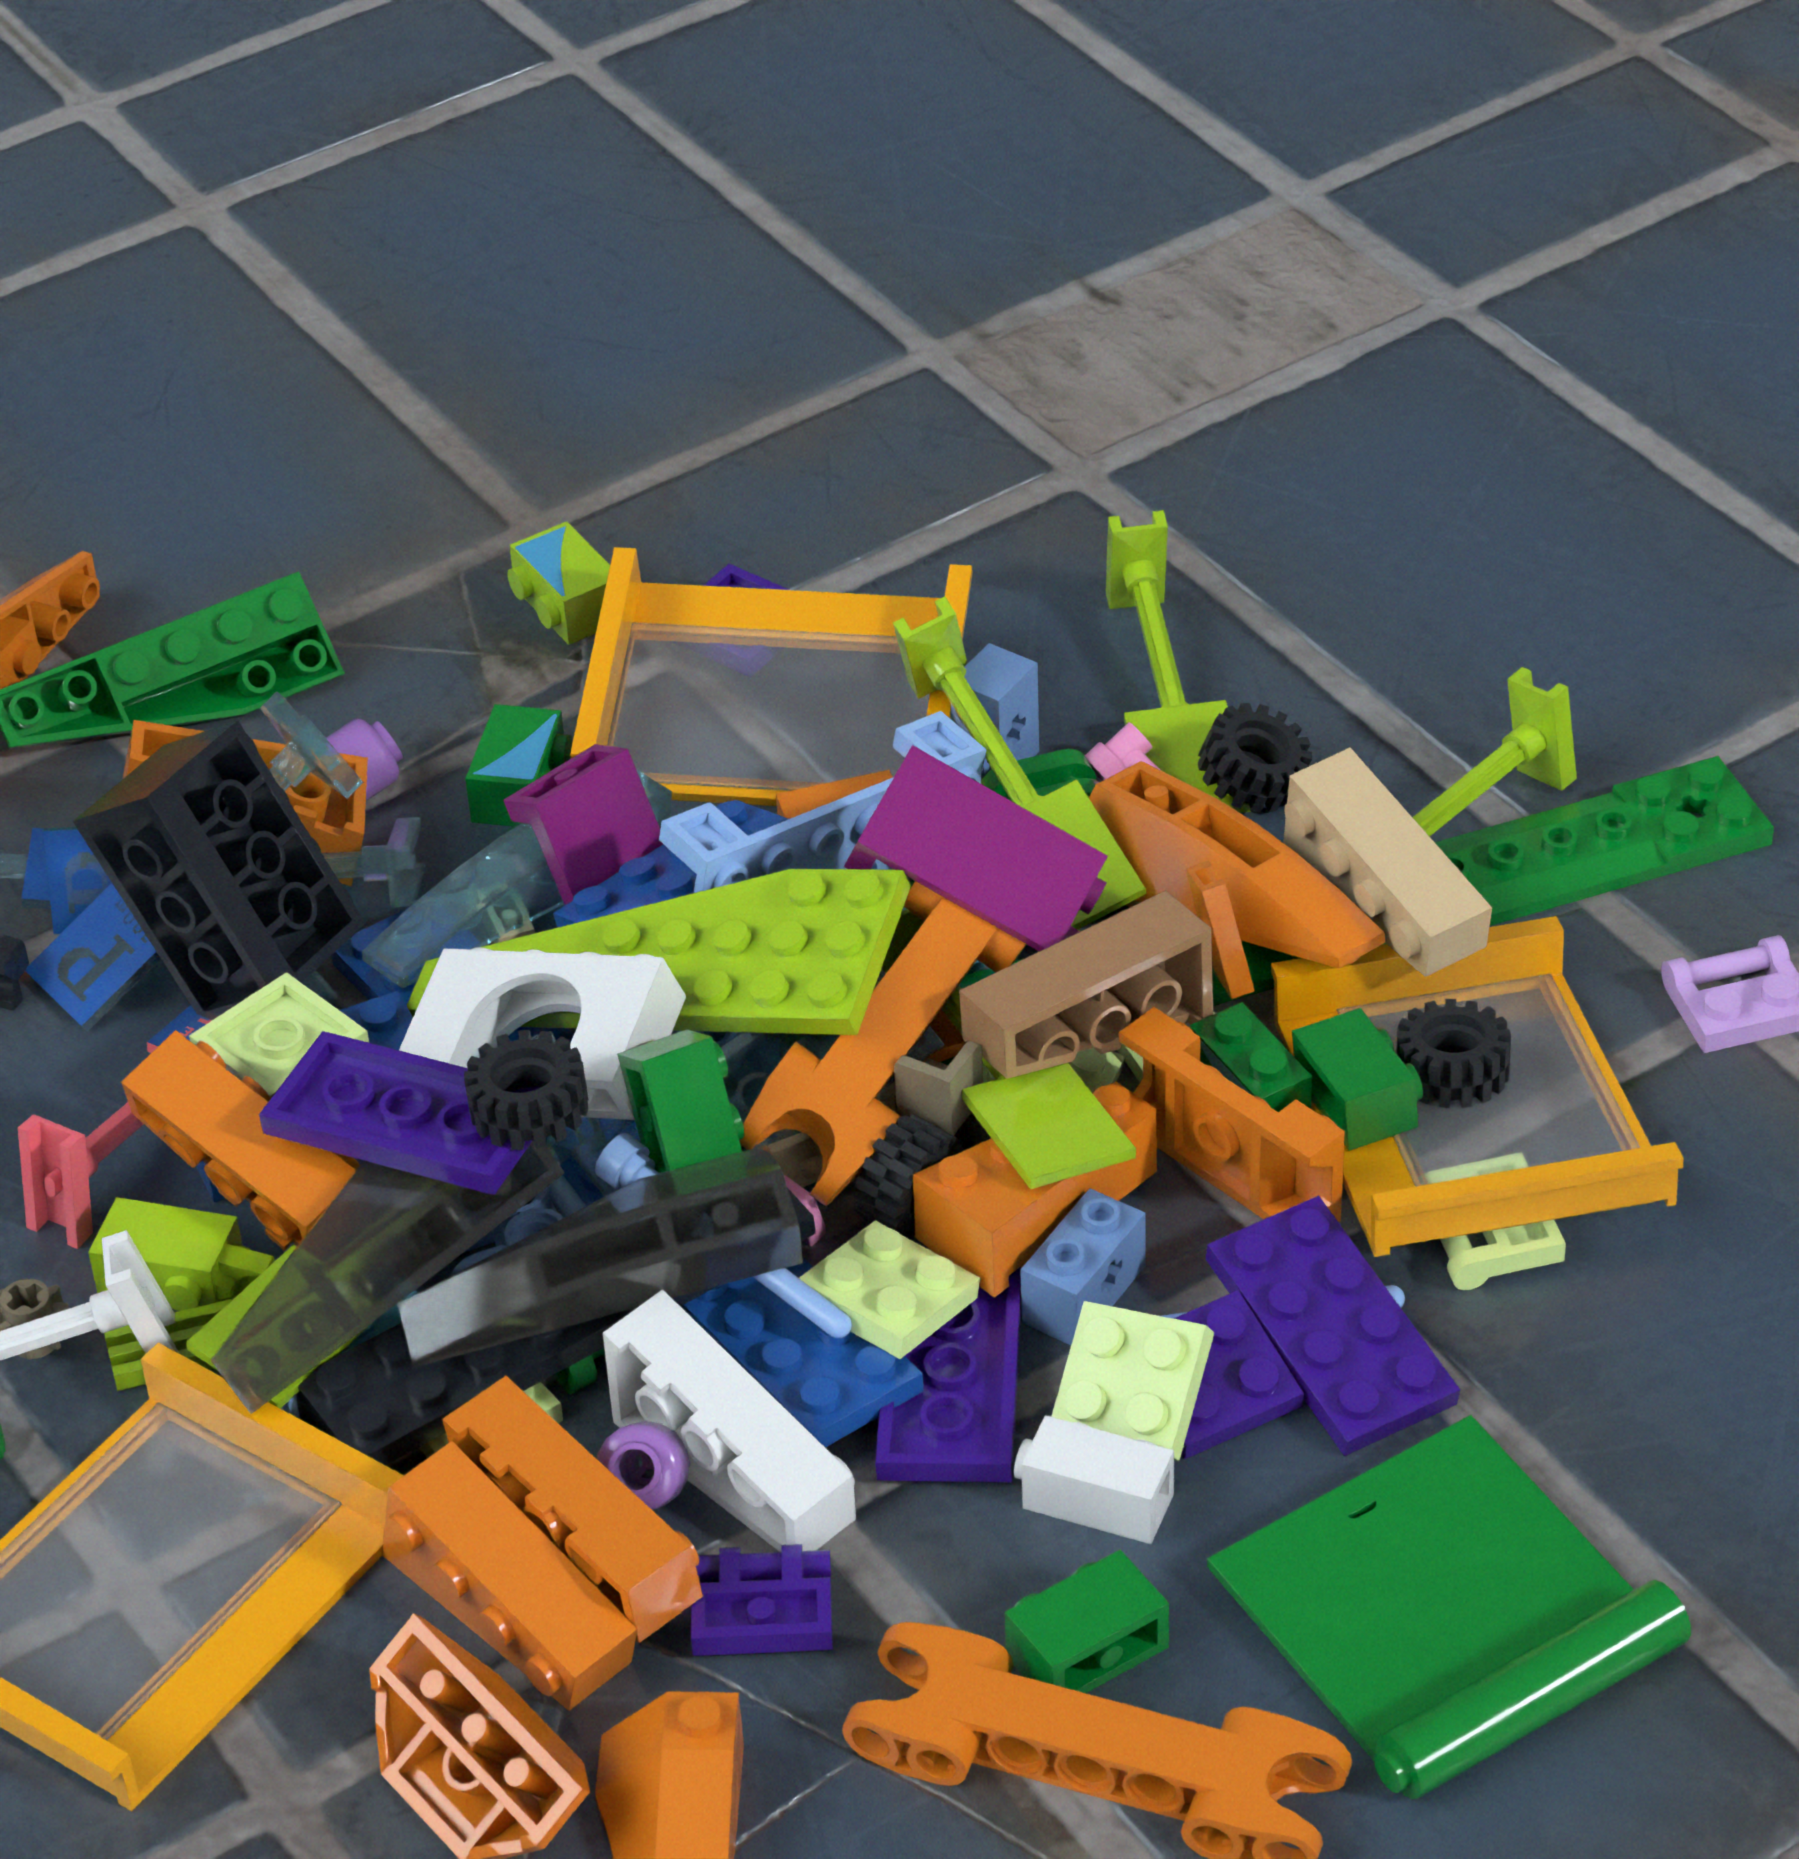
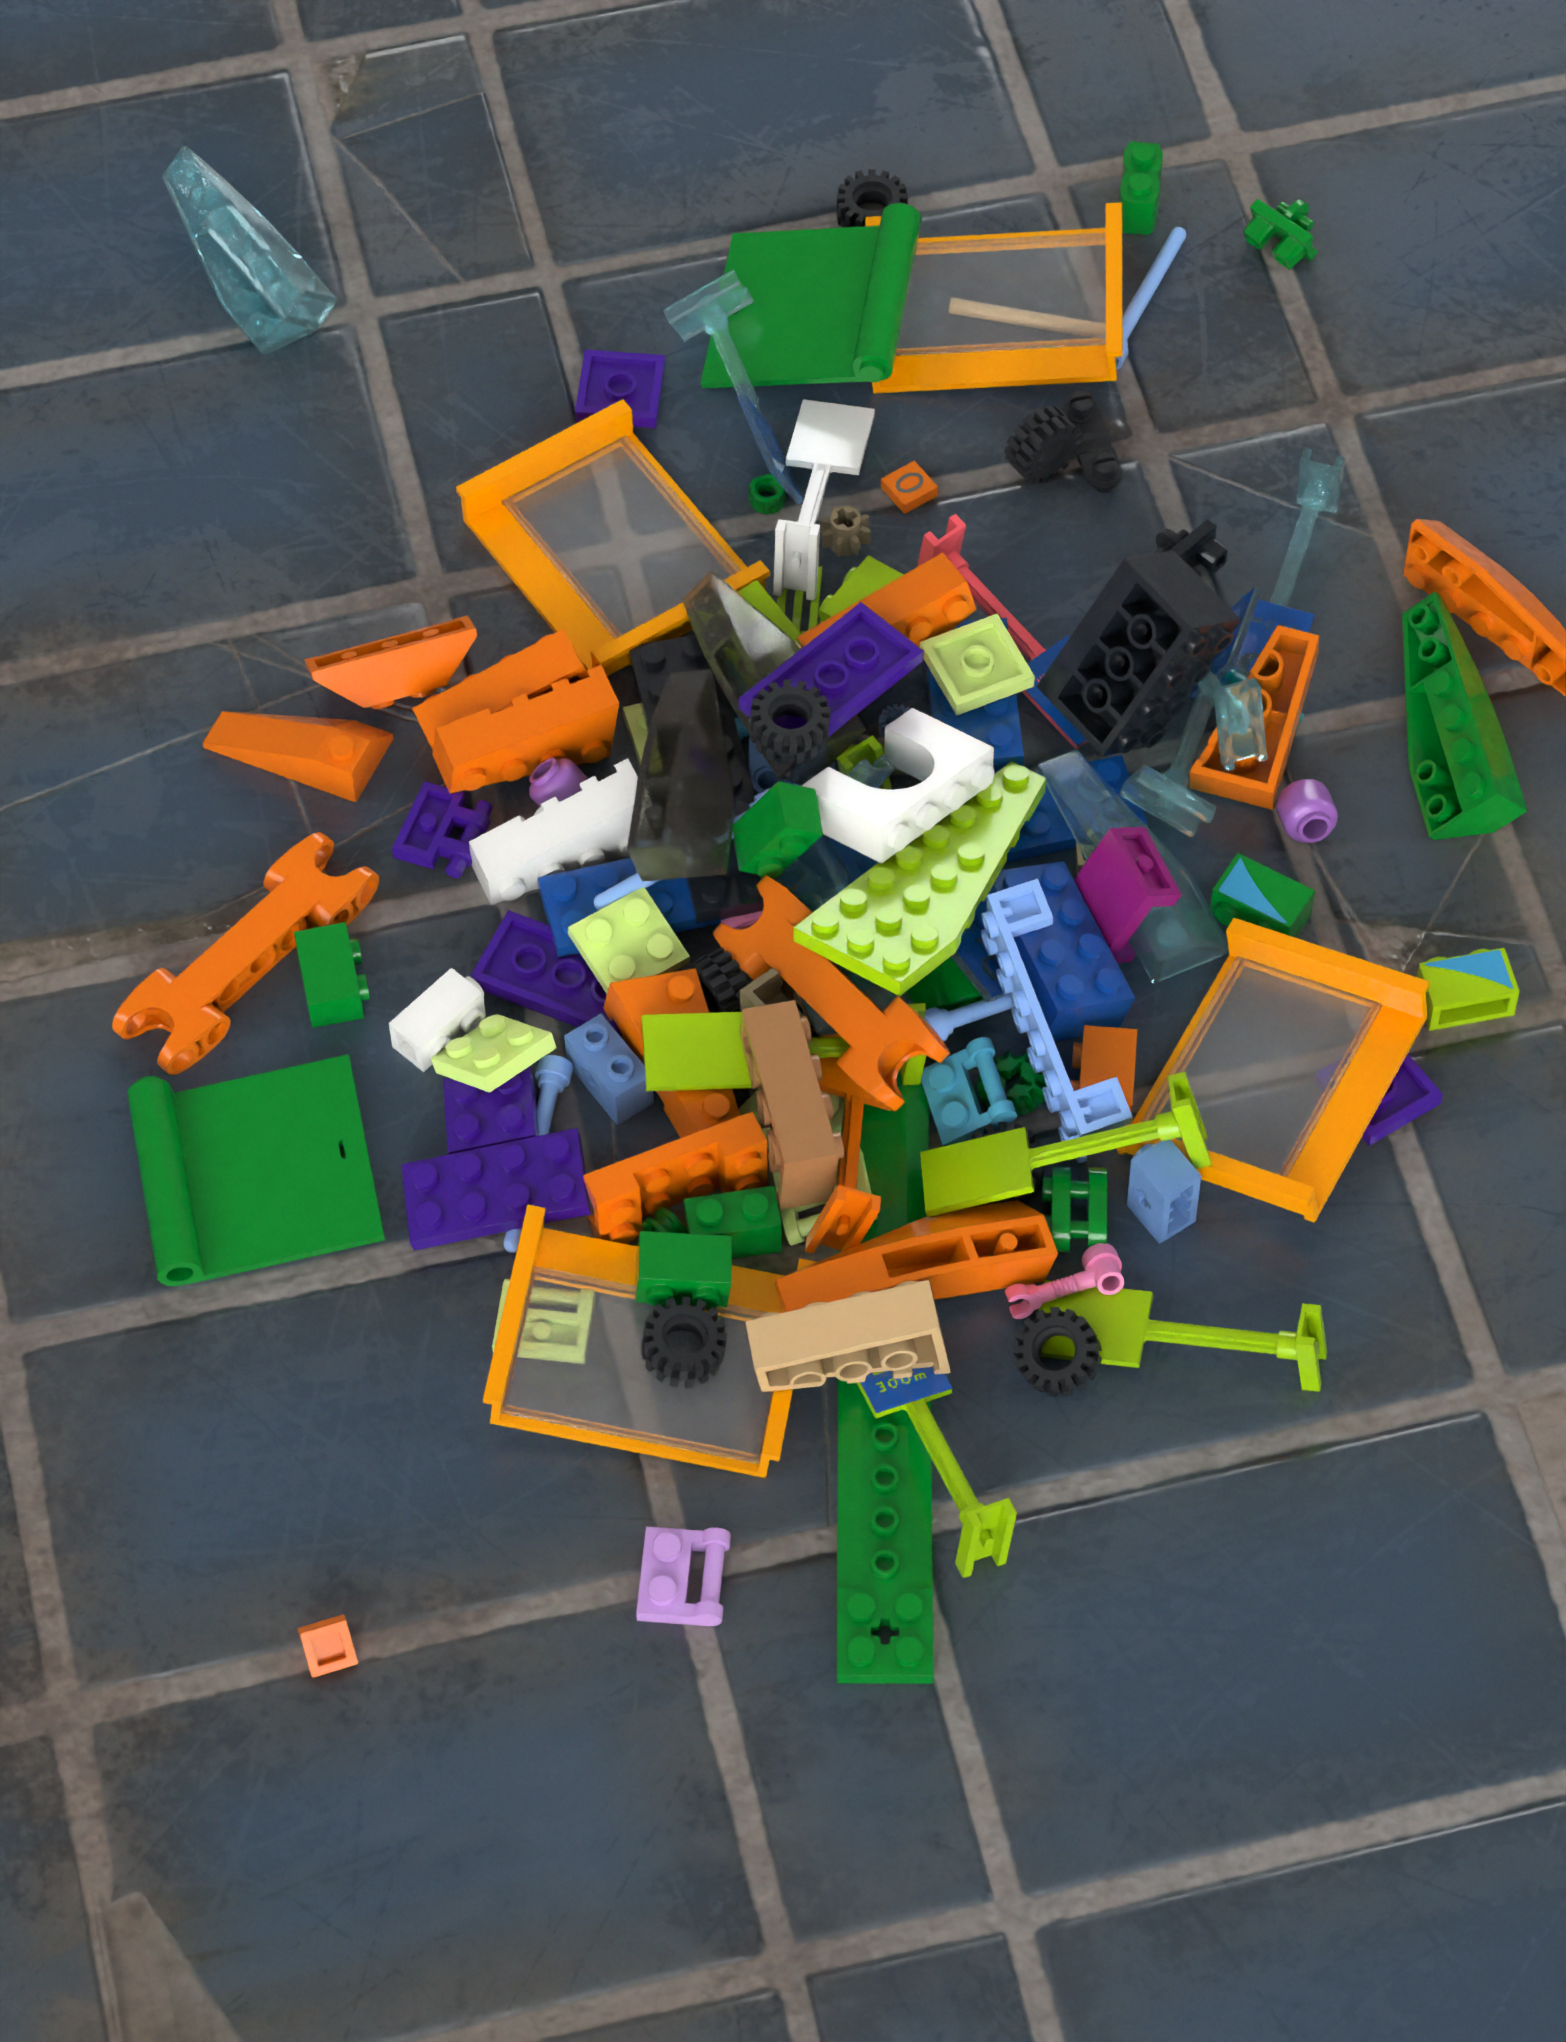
camera: 110 degrees right, 15 degrees up
(981, 852) = (906, 1043): magenta panel -> none

